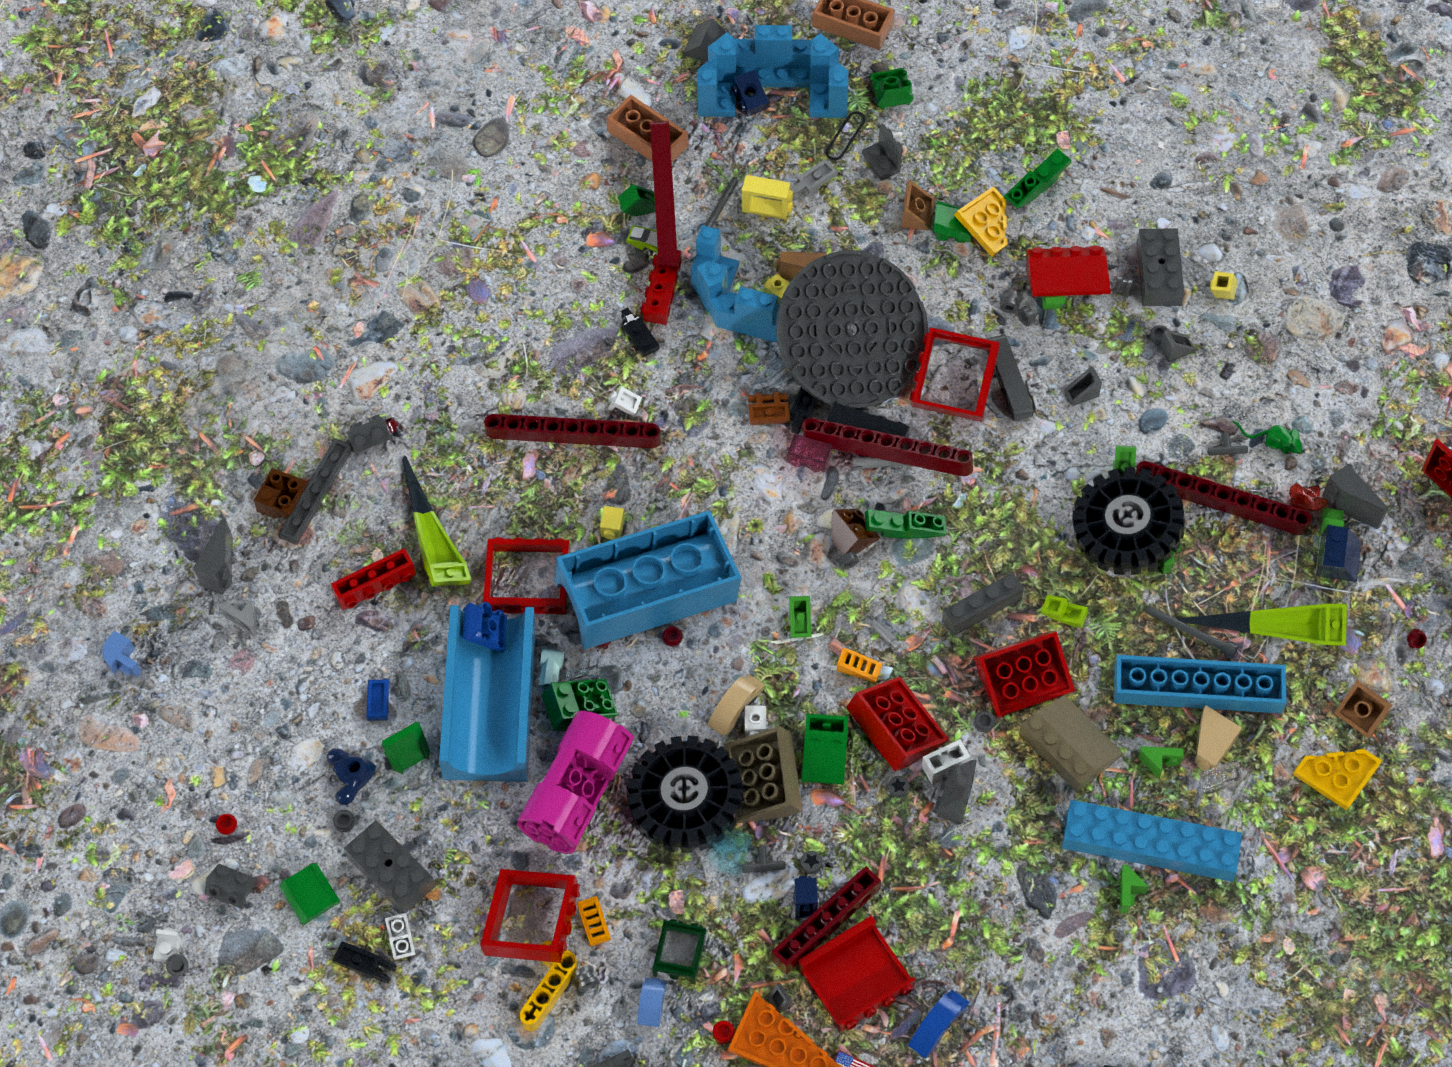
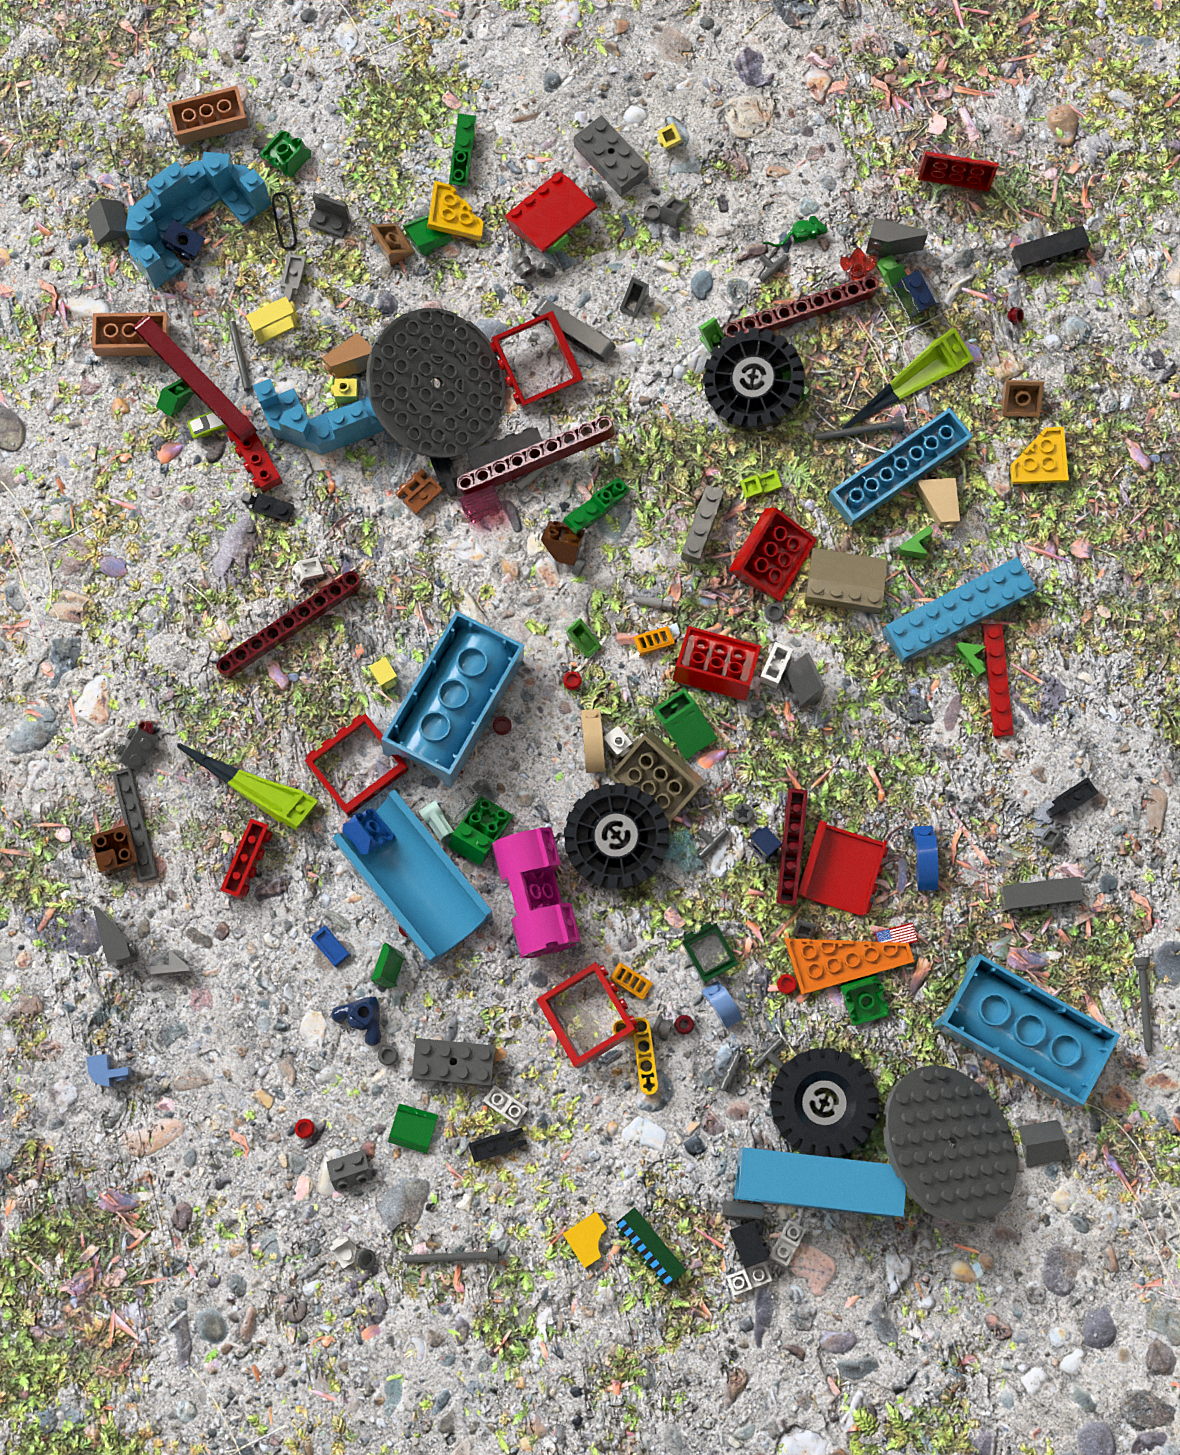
camera: 40 degrees left, 15 degrees up
(277, 1048) = (490, 1255): none -> dark grey piece
(605, 987) = (686, 1018): none -> dark red plate
(762, 645) = (572, 680): none -> red plate
(1136, 927) = (997, 680): none -> red plate

